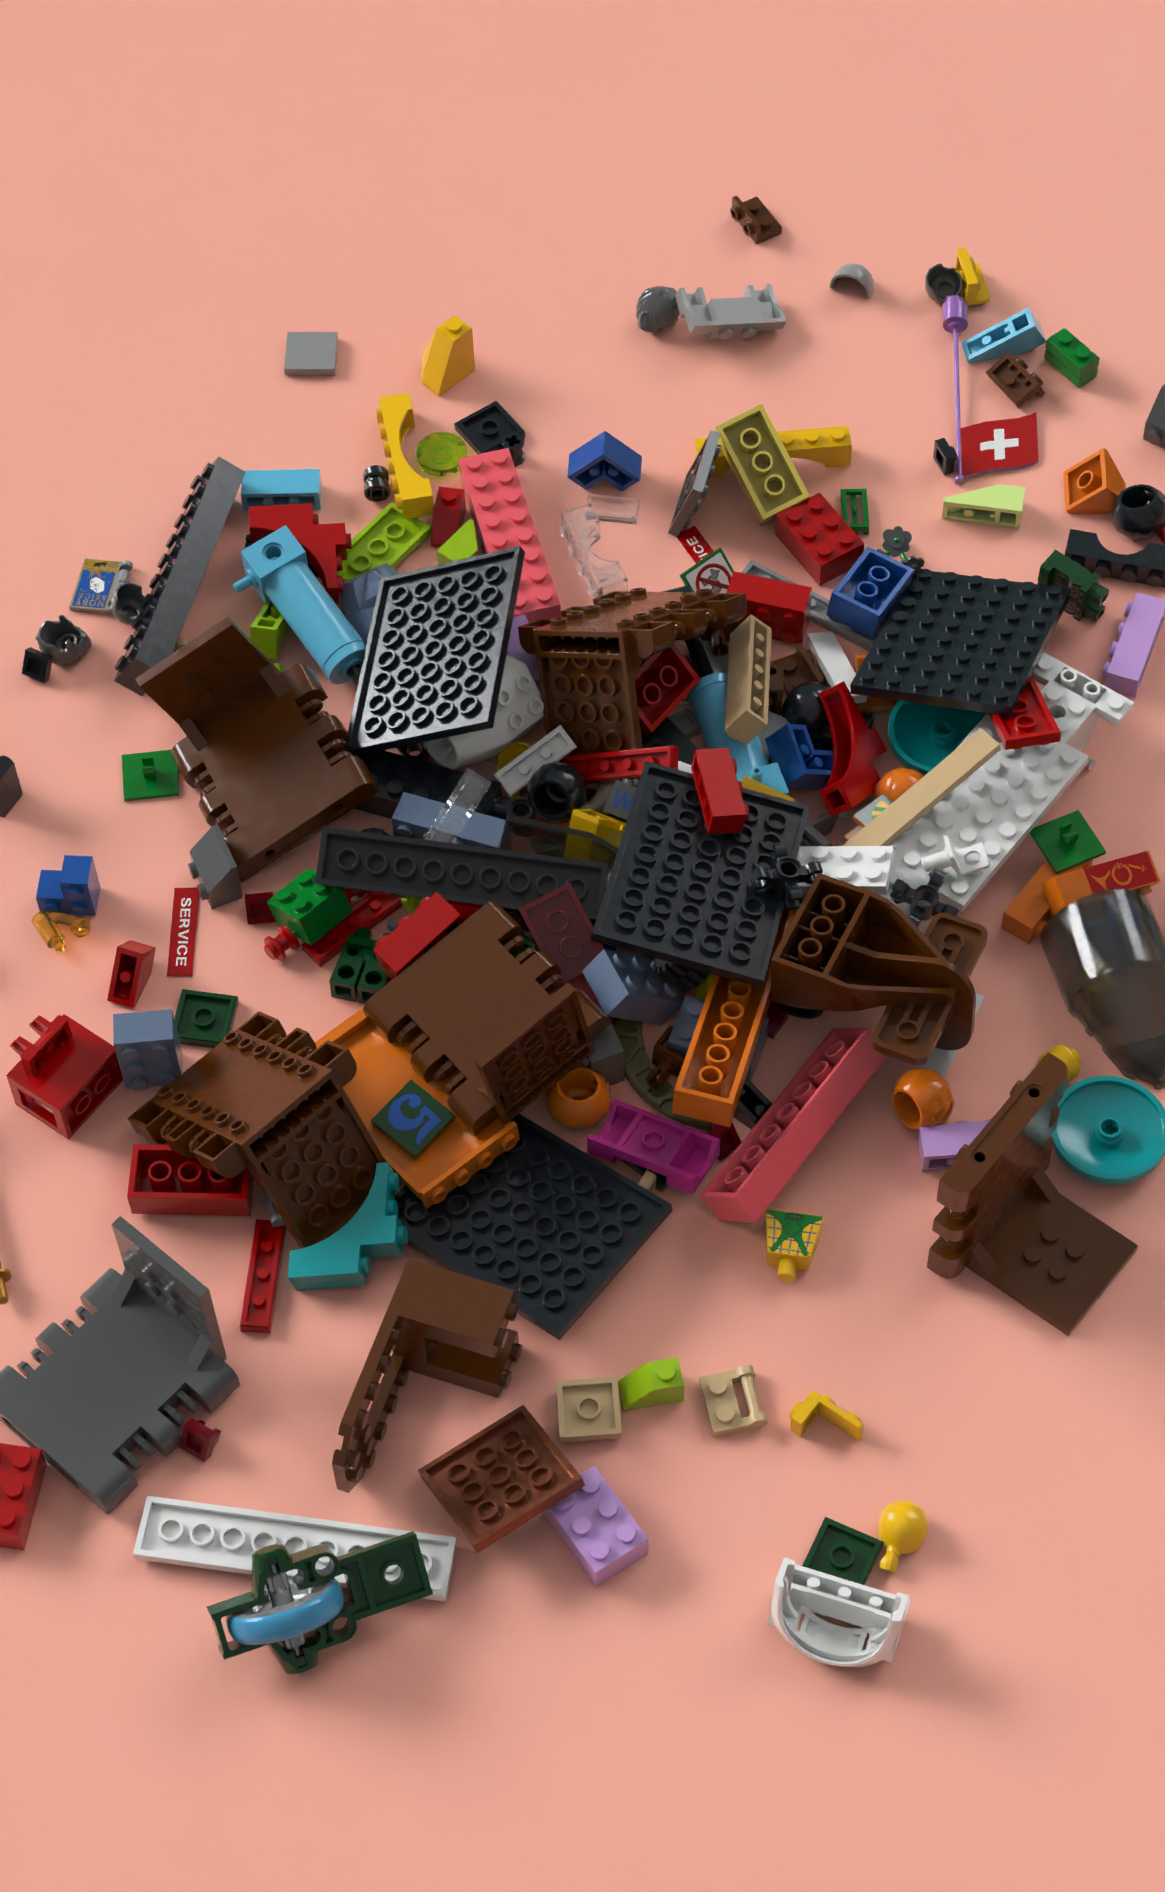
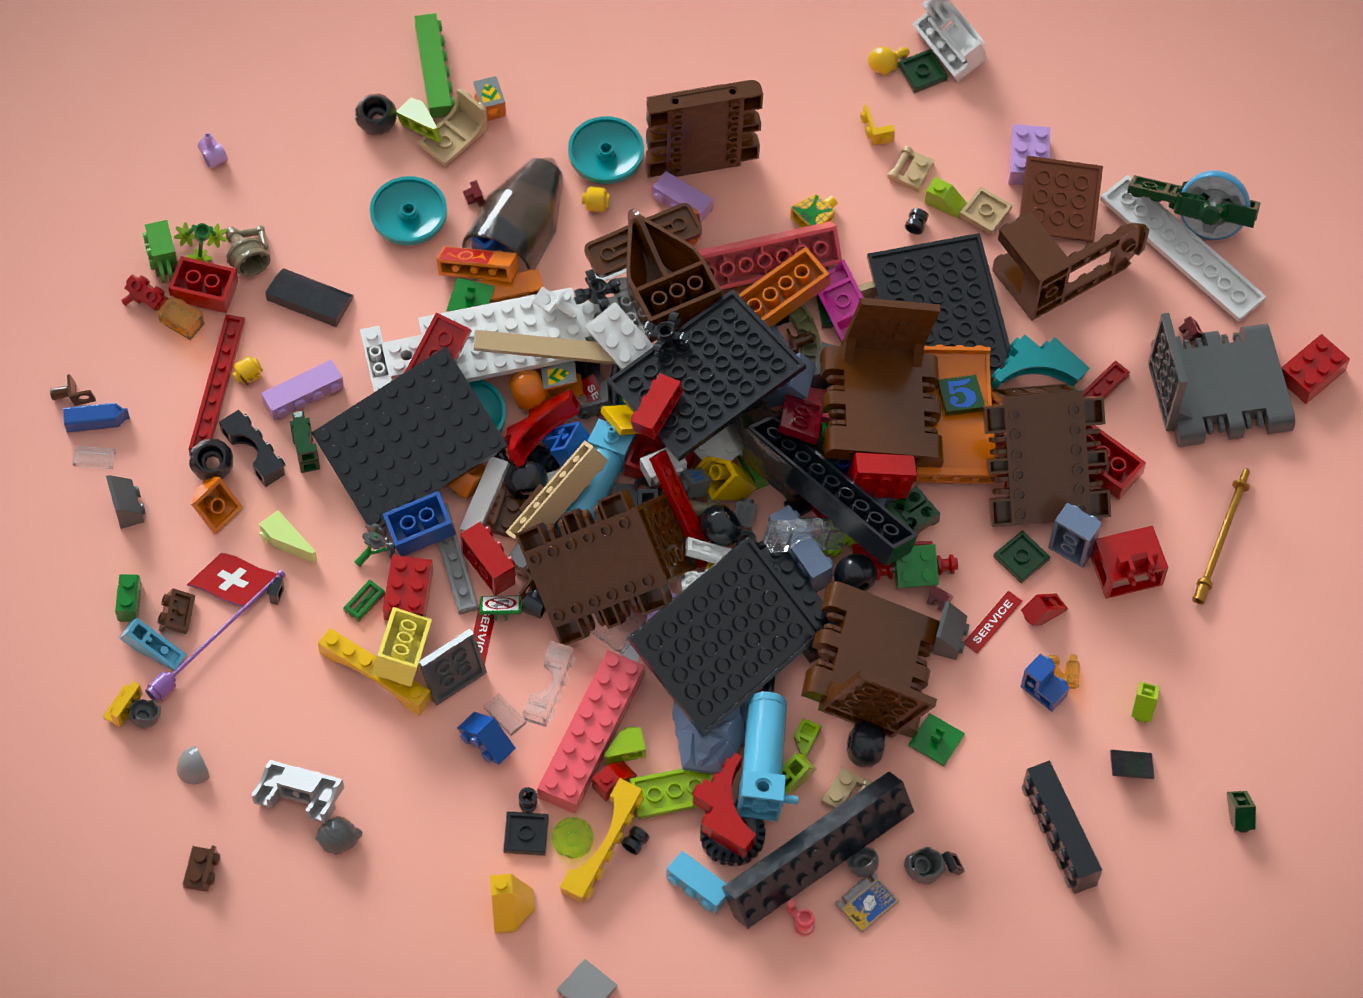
camera: 145 degrees left, 5 degrees up
(148, 526) = (804, 919): none -> coral piece
(661, 1326) = (916, 221): none -> black wheel

